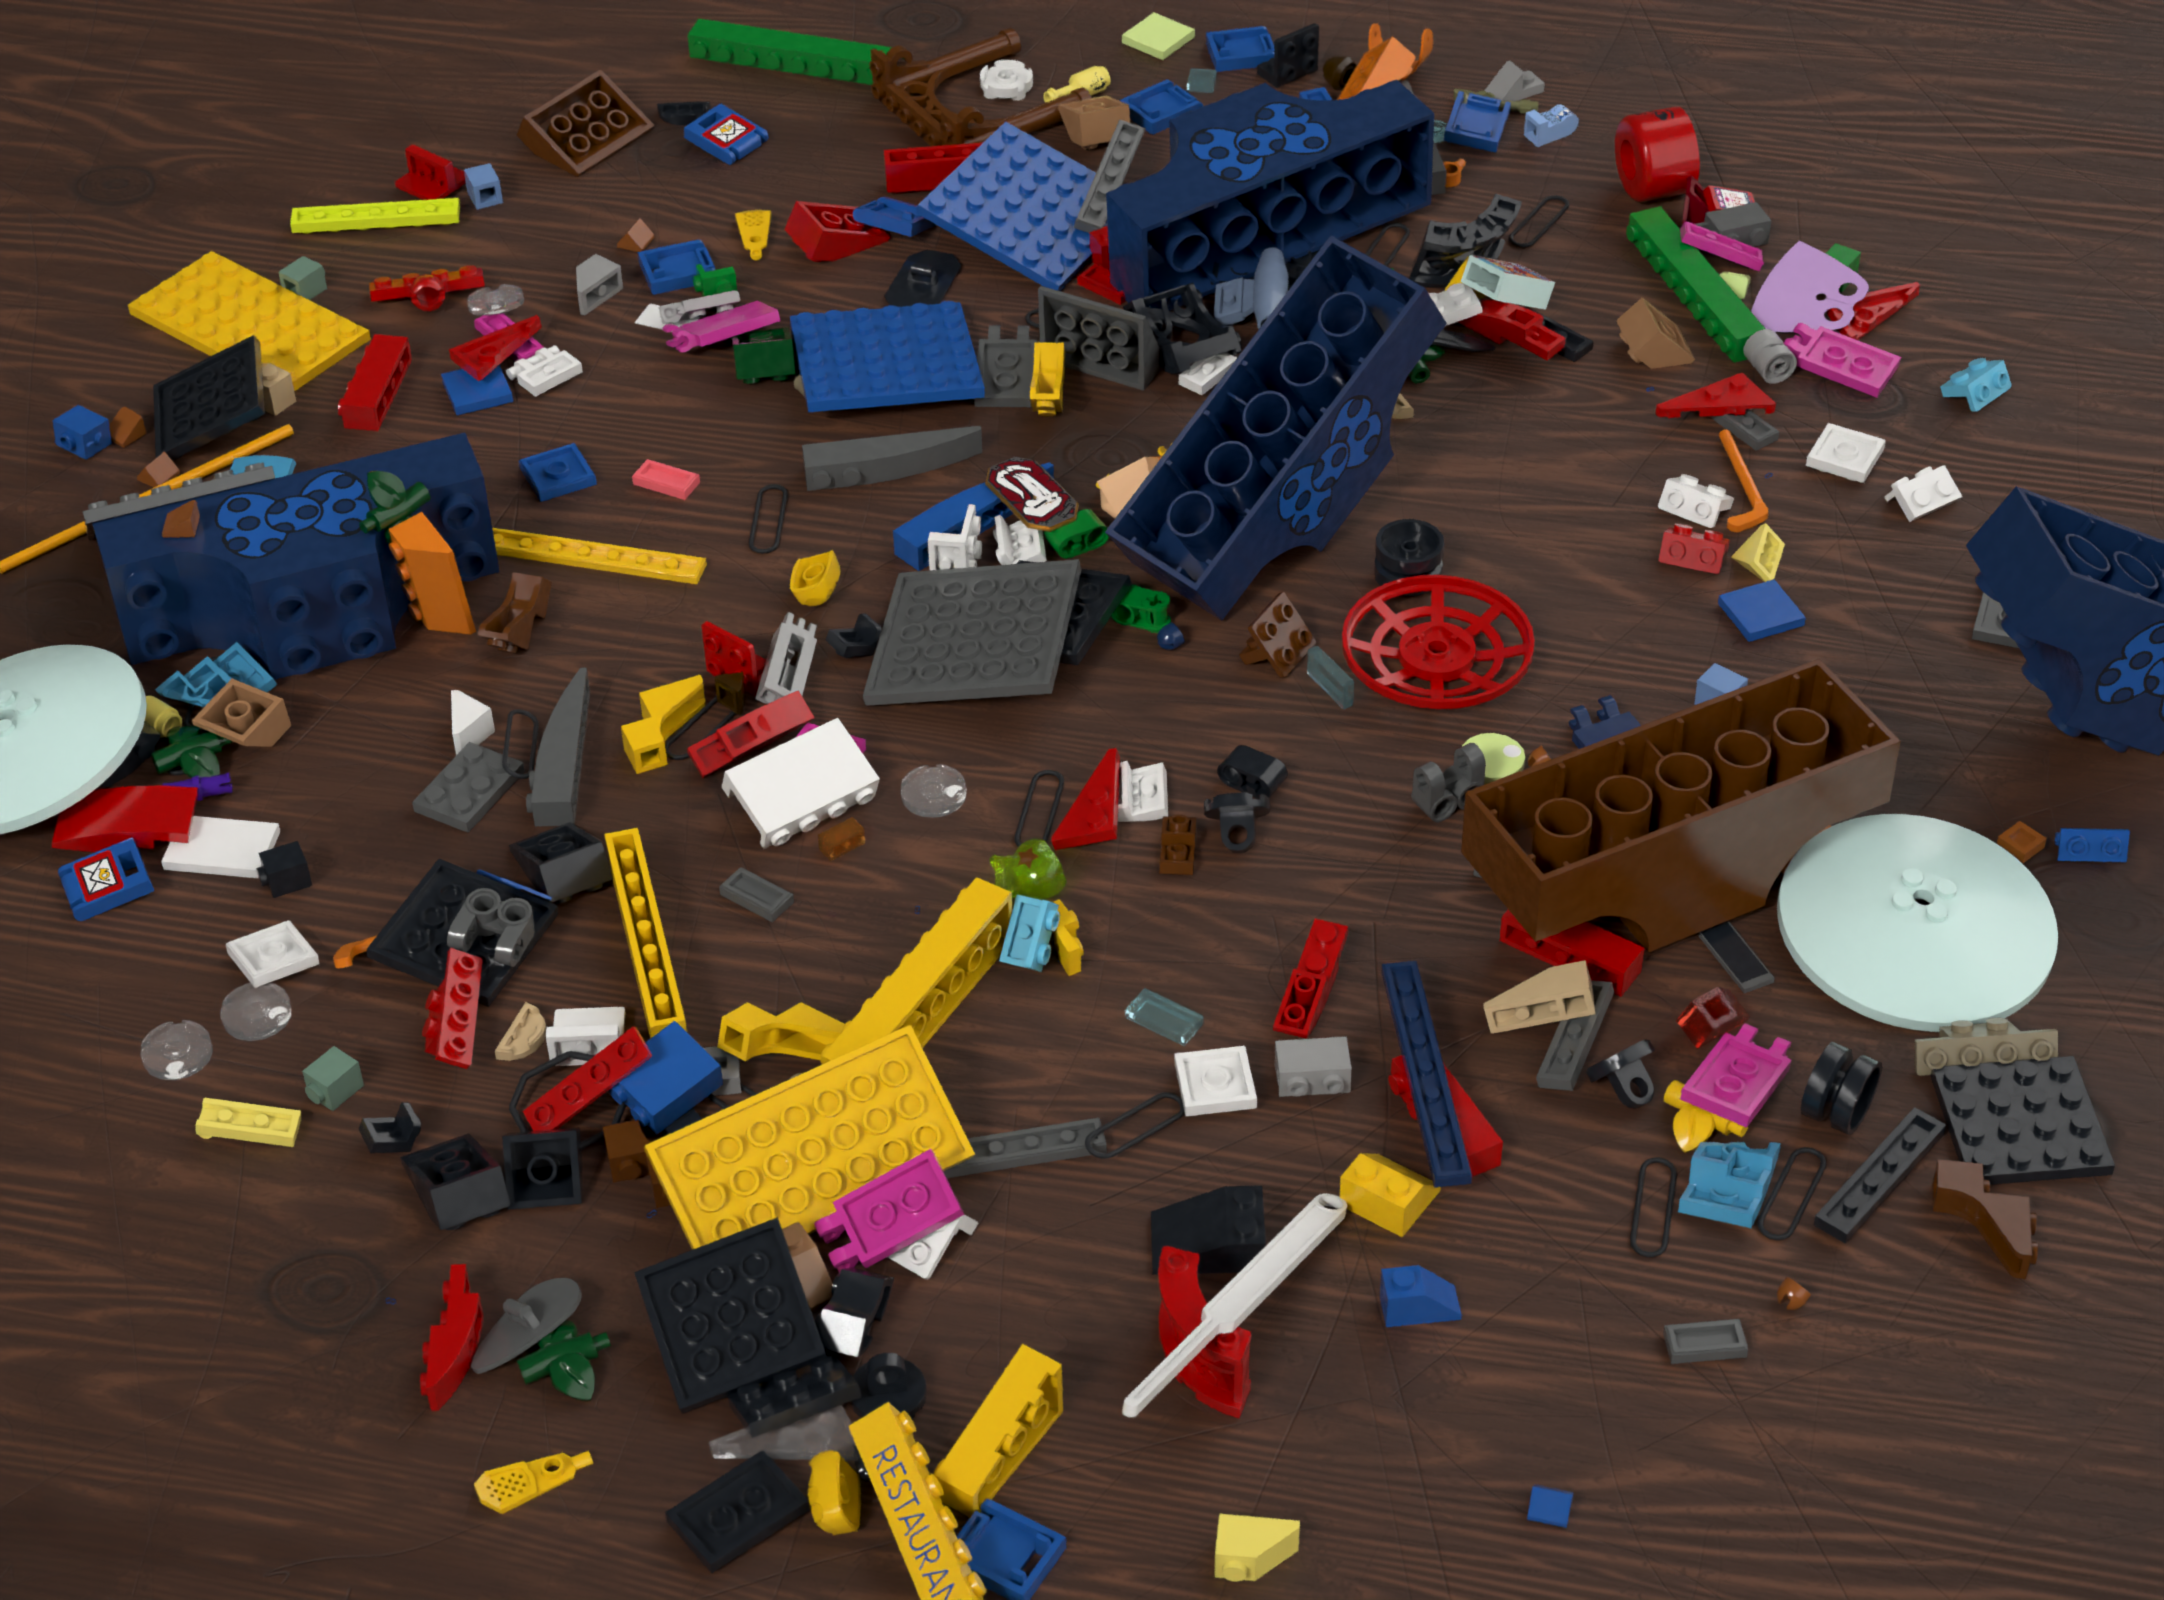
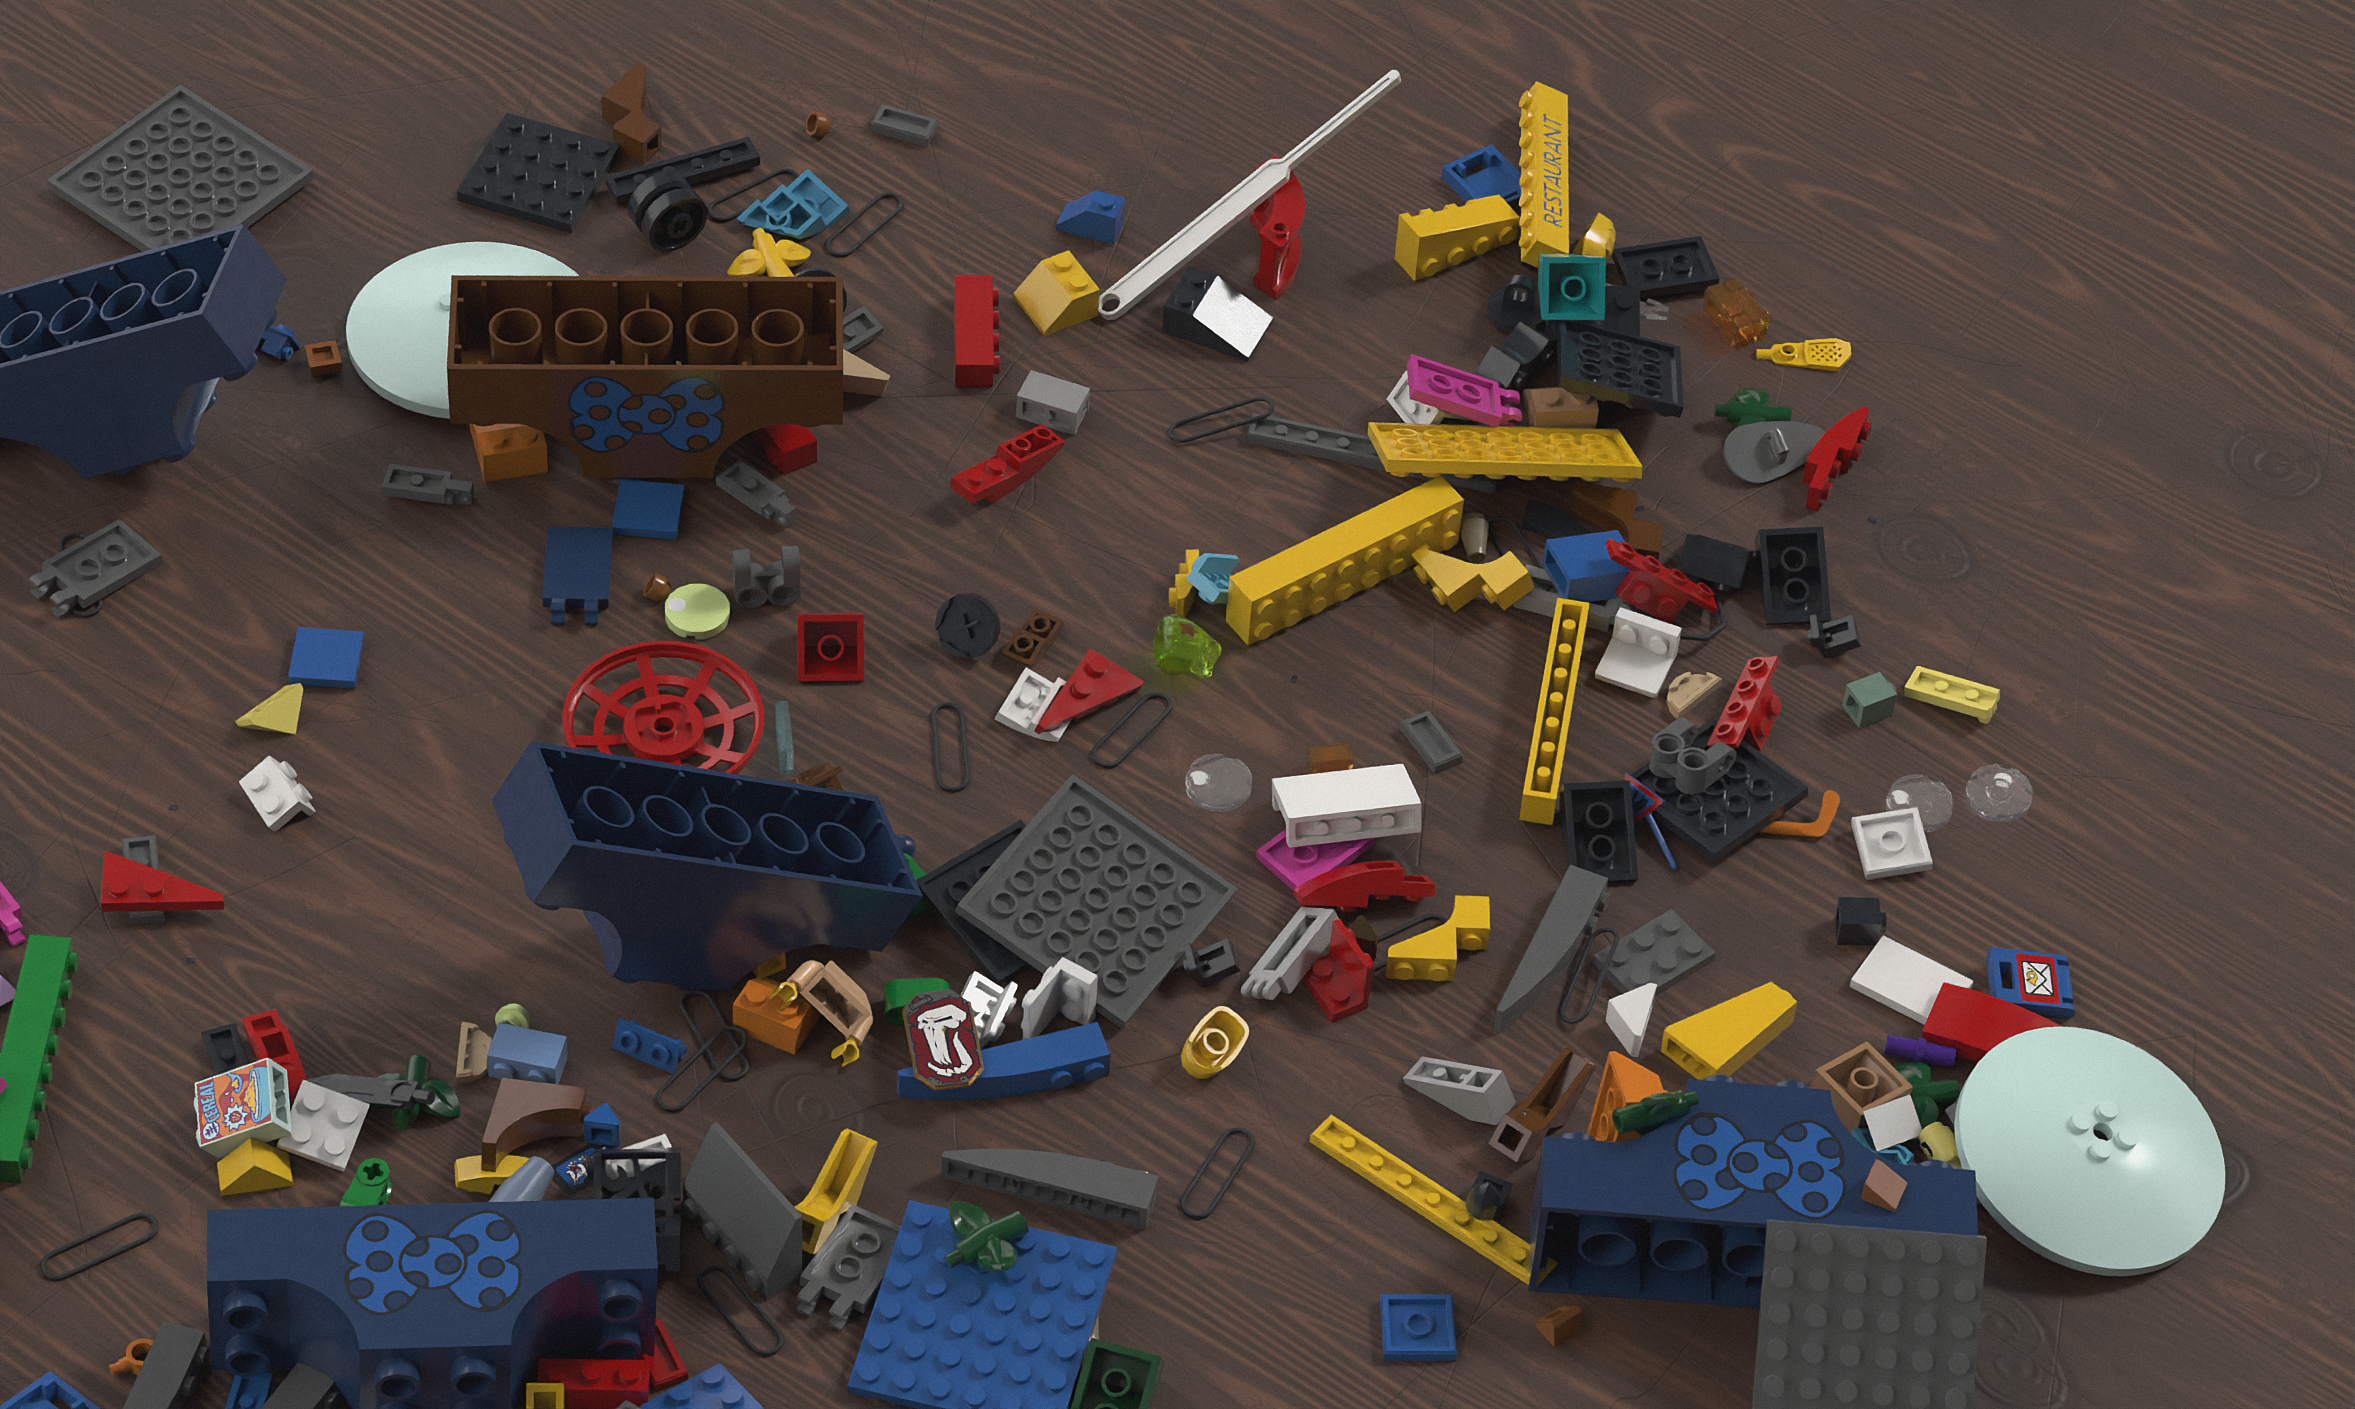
camera: 160 degrees left, 5 degrees up
(204, 697) = (1893, 1122): none -> white sticker
(375, 739) = (1730, 1032): none -> yellow slope
(538, 555) = (1487, 1196): none -> black plate
(593, 620) = (1466, 1089): none -> light grey slope
(628, 1478) = (1736, 313): none -> clear orange brick
(666, 479) = (1303, 1267): coral tile -> none
(830, 1359) = (1571, 287): none -> teal slope
(899, 365) = (984, 1238): none -> dark green plant
(1164, 1016) = (1142, 498): clear light blue tile -> none
(1177, 742) = (936, 747): none -> black piece
(1215, 1081) = (1136, 425): white plate -> none
(1252, 771) = (923, 673): black beam -> none
(1253, 1545) = (1311, 111): light yellow slope -> none
(1352, 765) = (830, 646): none -> red slope
(1426, 1075) = (976, 340): dark blue tile -> none
(1449, 244) = (202, 1152): black fence -> none
(1550, 1505) = (1091, 74): blue slope -> none
(1653, 337) = (139, 1000): medium nougat slope -> none
(1693, 549) = (326, 742): red bracket -> none
(1717, 682) = (445, 582): medium blue brick -> none
(1738, 1076) = (741, 251): dark pink tile -> none
(1760, 510) = (223, 765): orange piece -> none
(1770, 356) = (48, 913): light grey wheel -> none
(1845, 453) = (83, 784): white plate -> none
(1924, 493) = (56, 712): white bracket -> none
(1983, 1043) = (515, 226): dark tan bracket -> none

